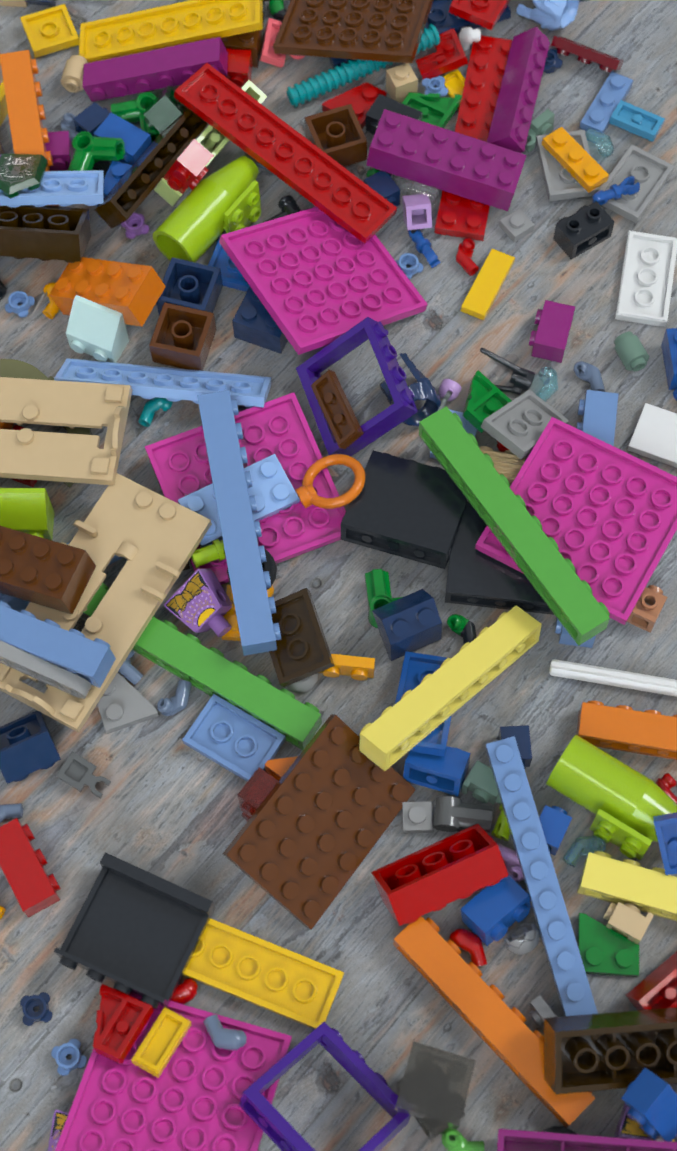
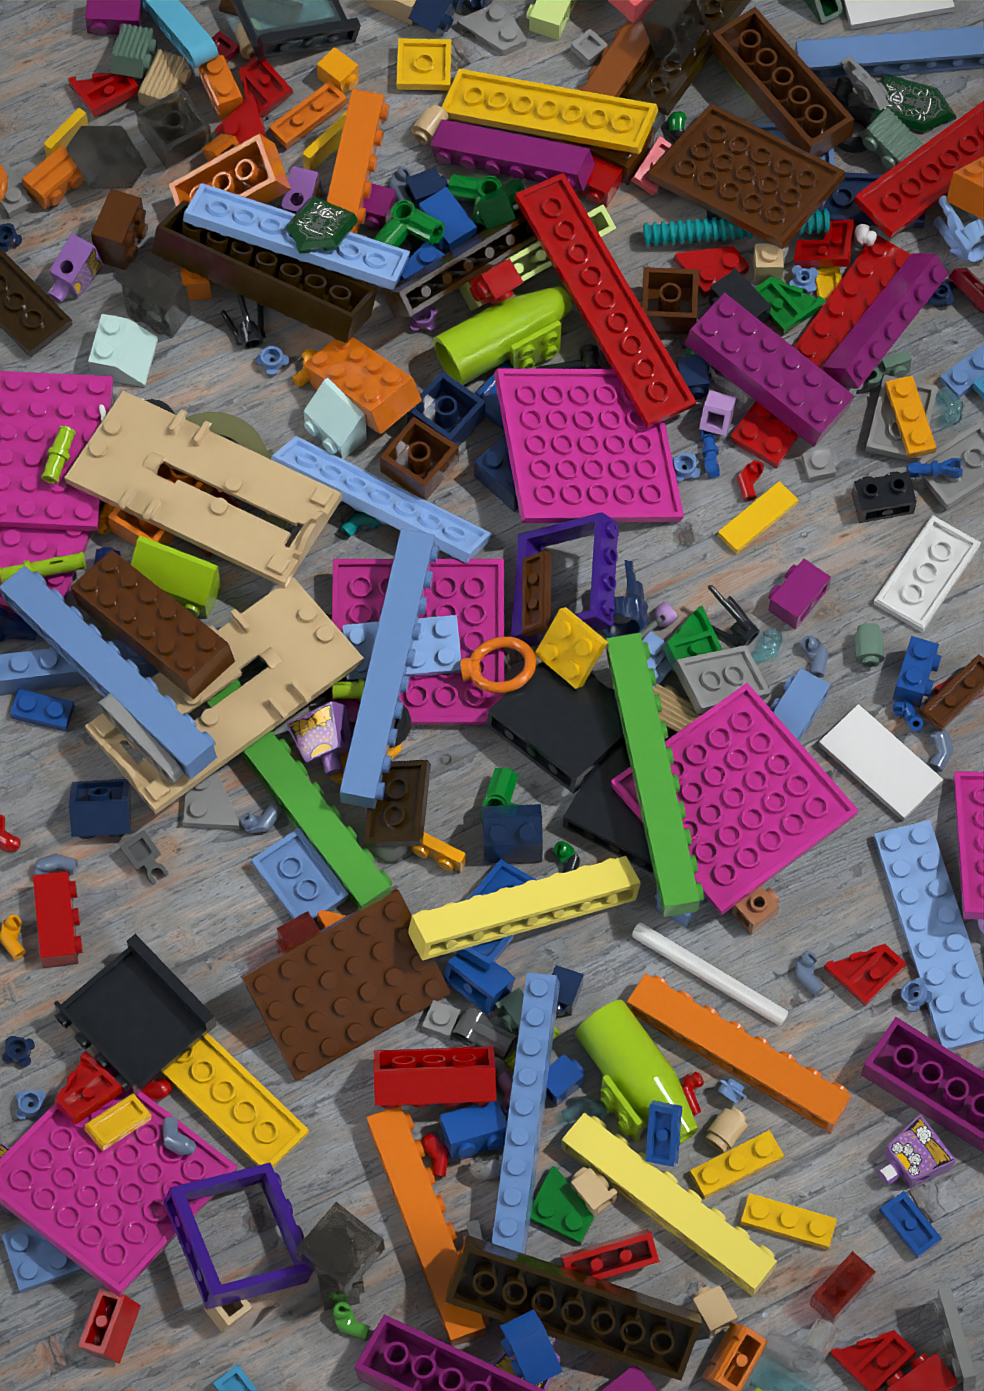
camera: 20 degrees right, 0 degrees up
(130, 671) = (228, 774): sand blue arm -> none
(389, 442) = (571, 648): none -> yellow plate

